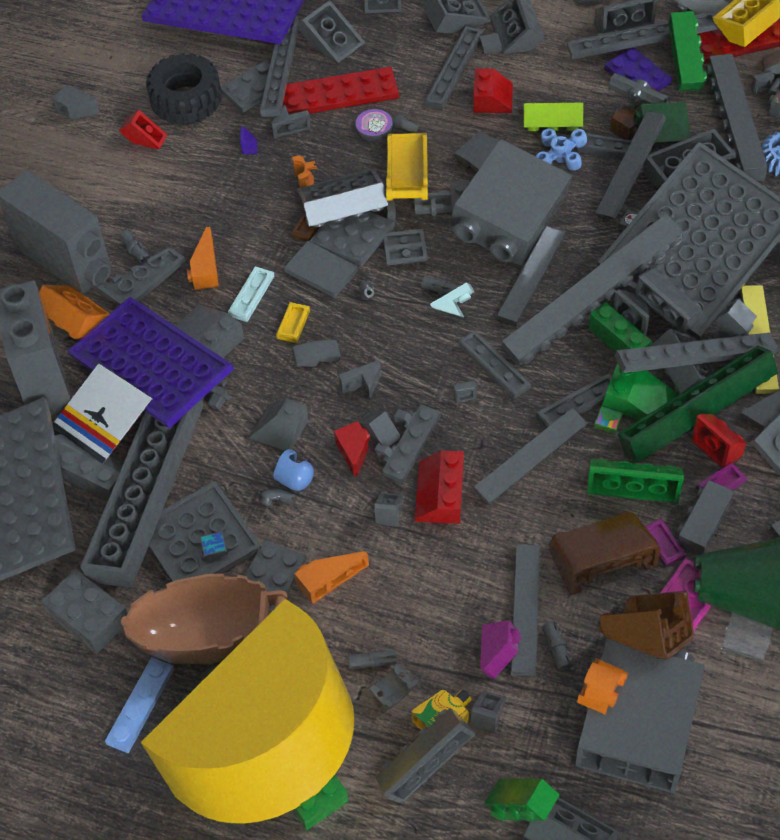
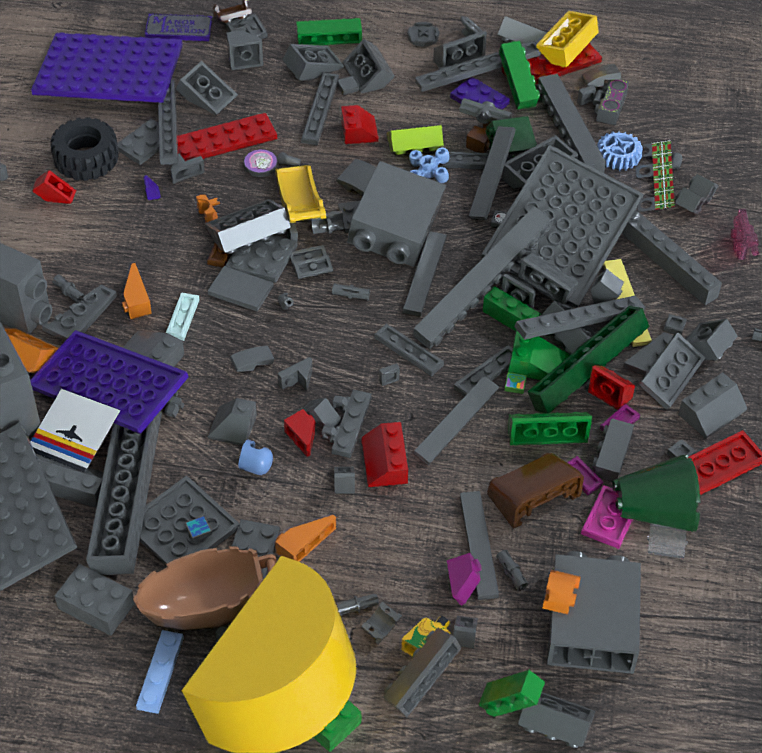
camera: 15 degrees left, 5 degrees down
(276, 494) = (243, 480): dark grey arm -> none
(293, 322) = (225, 336): yellow tile -> none
(448, 302) = (359, 304): light aqua slope -> none
(651, 624) = (589, 537): reddish brown windscreen -> none

